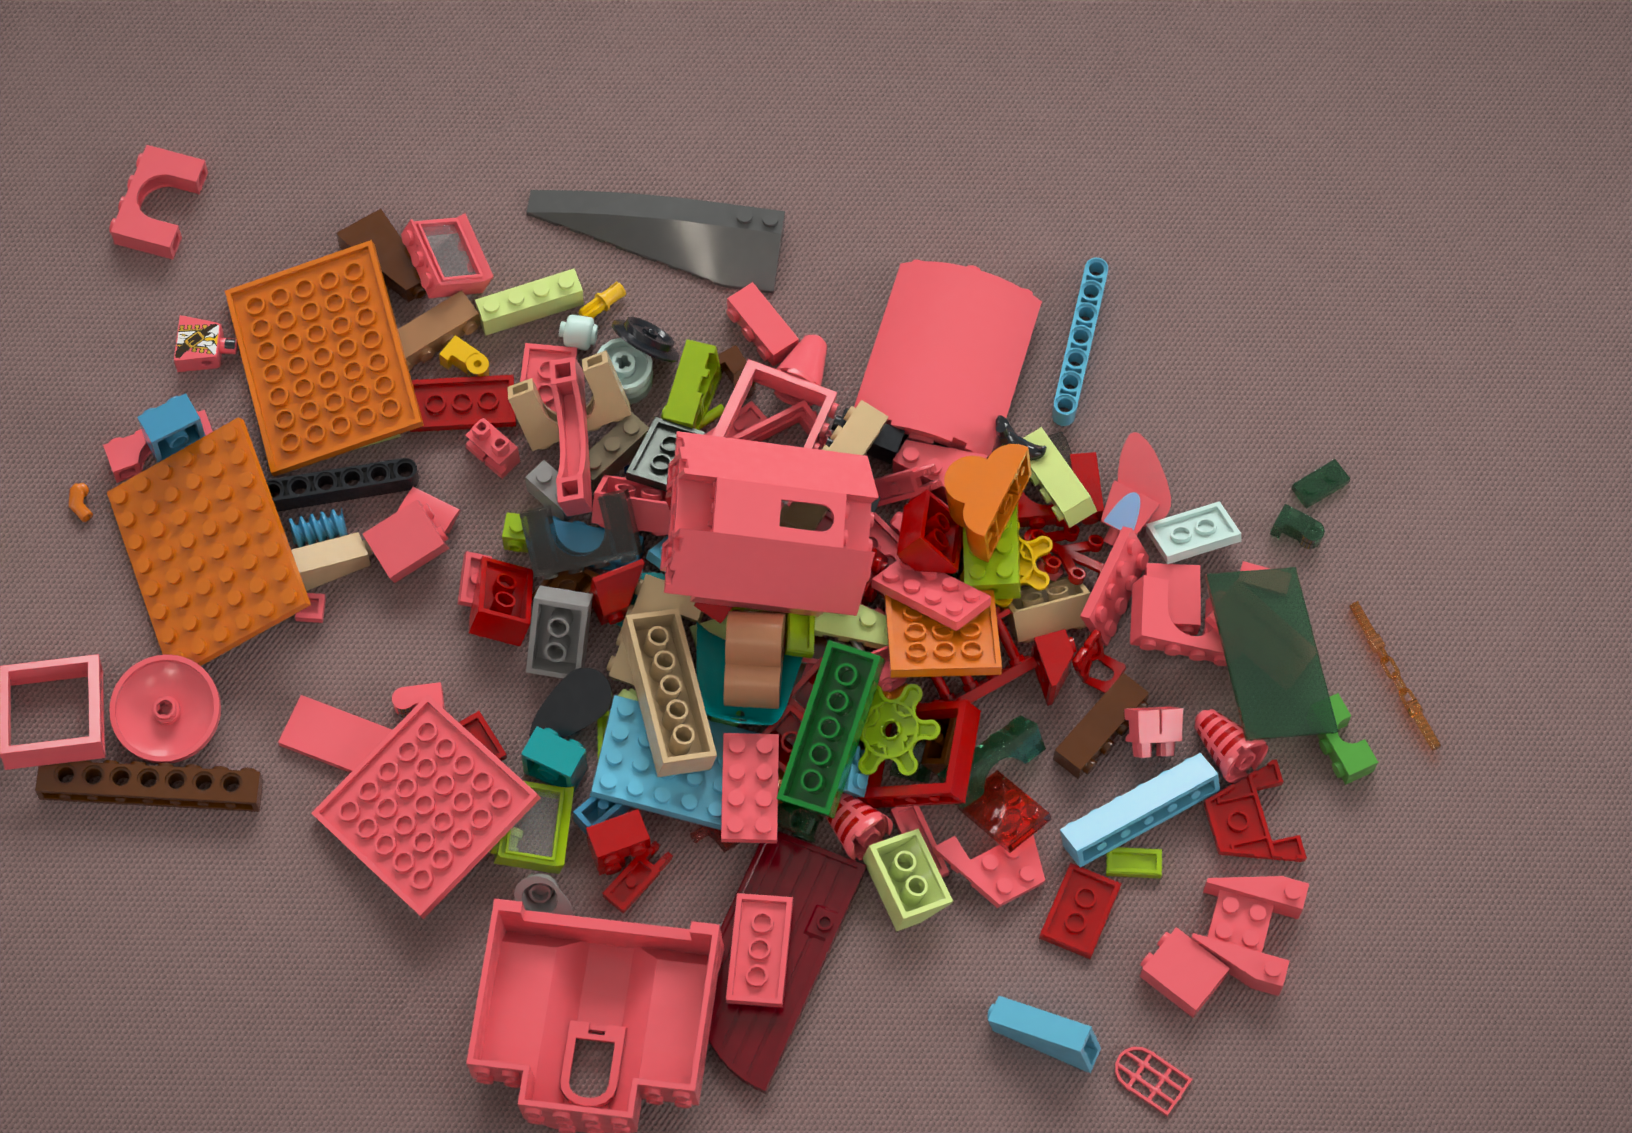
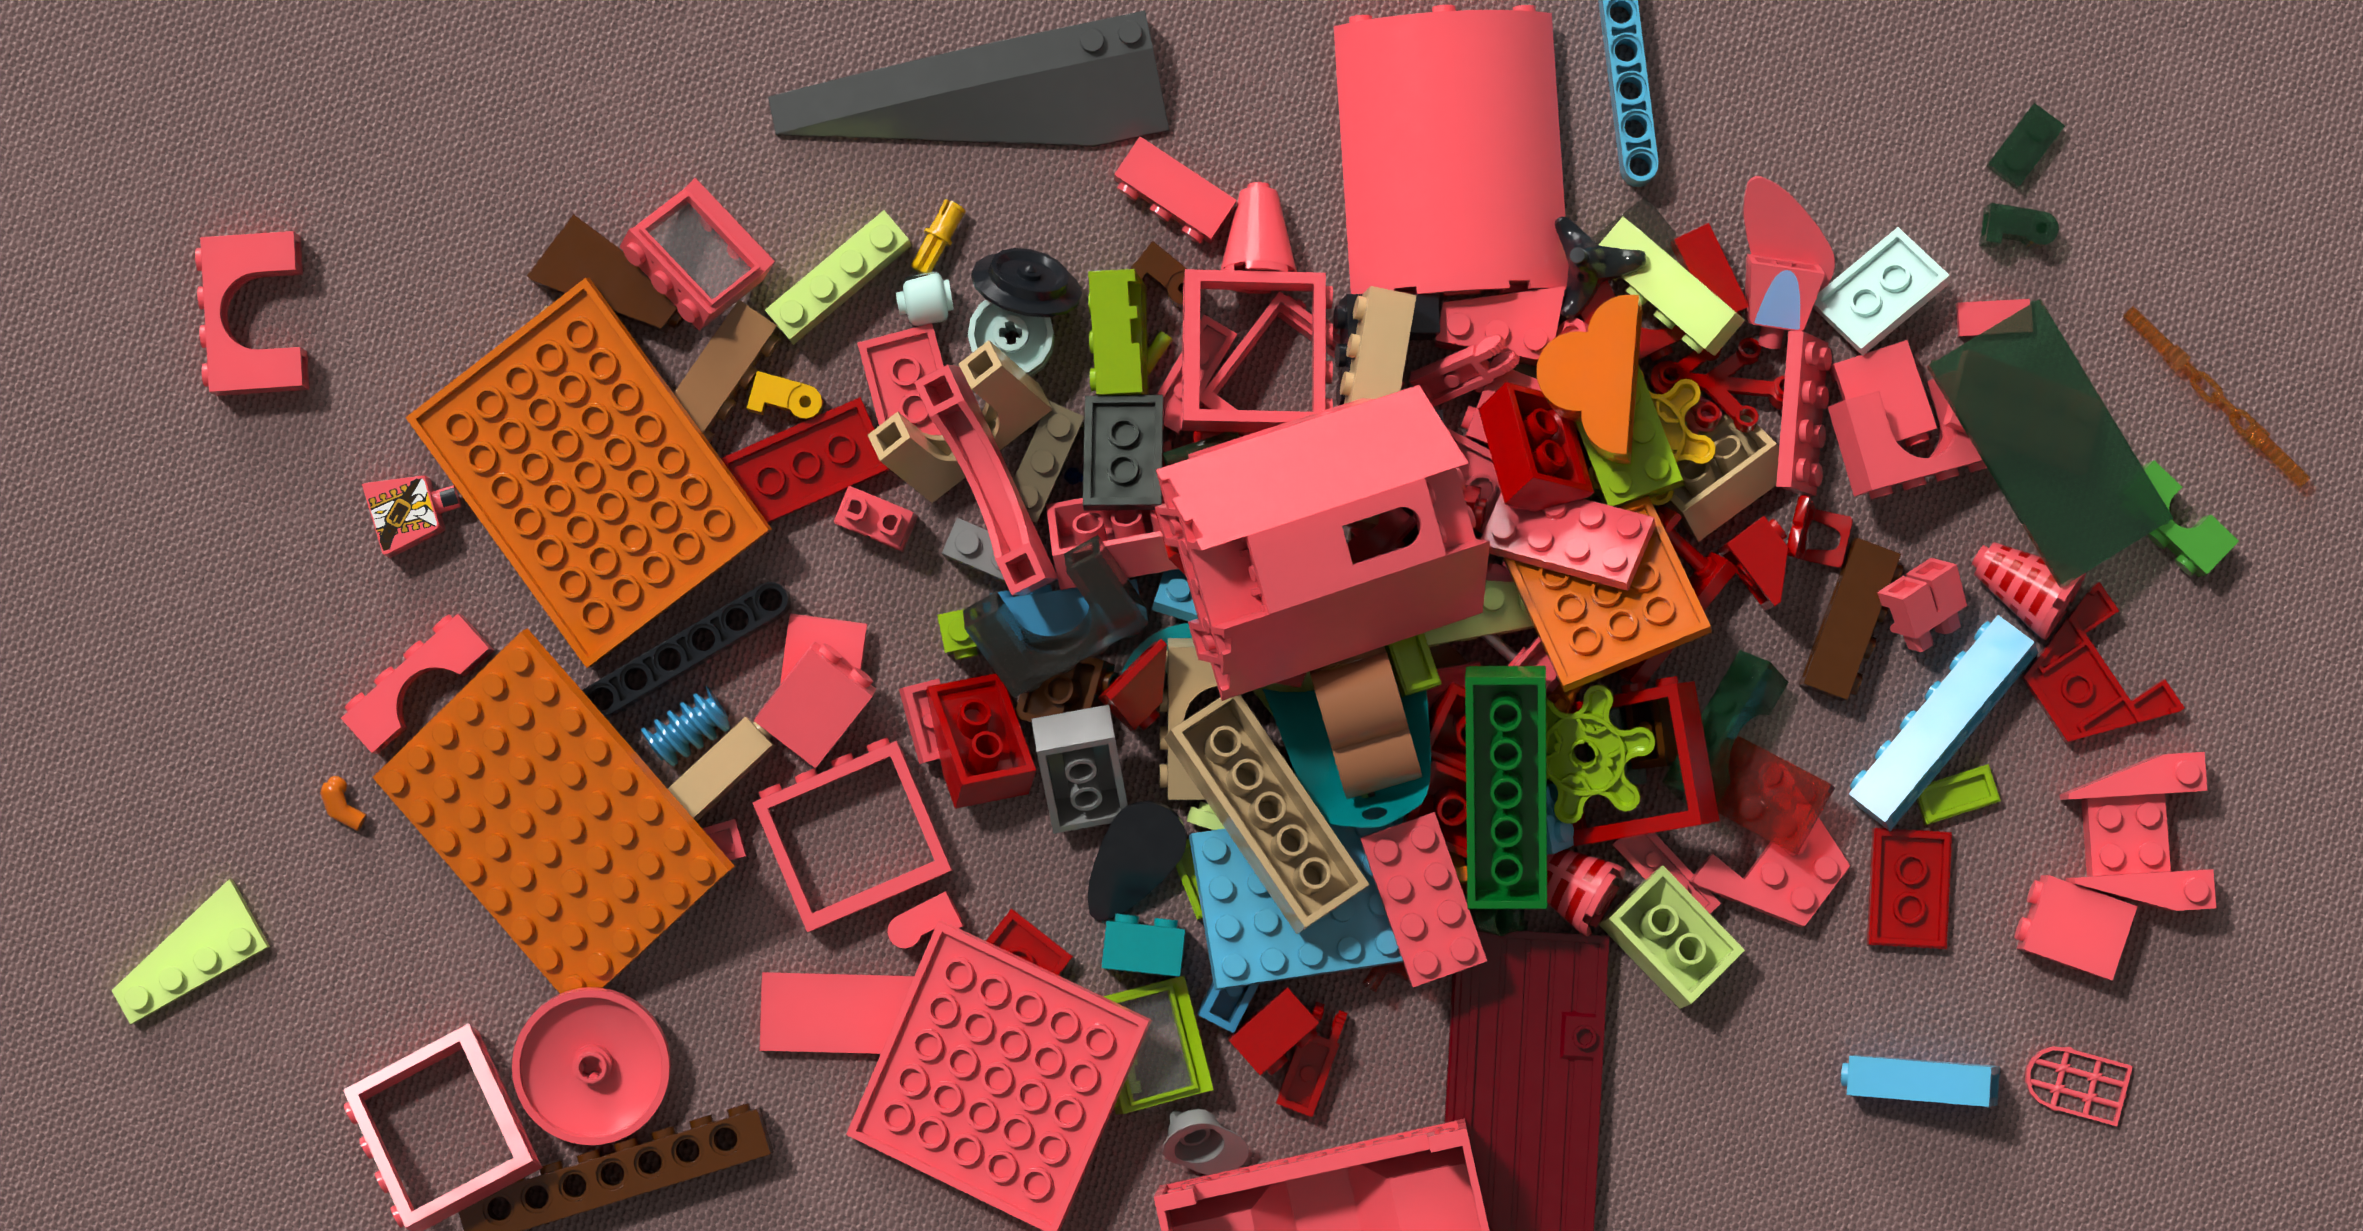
camera: 20 degrees left, 20 degrees up
(171, 426) = (430, 671): dark azure brick -> none
(395, 671) = (812, 780): none -> coral window
(759, 950) = (1514, 1109): coral plate -> none

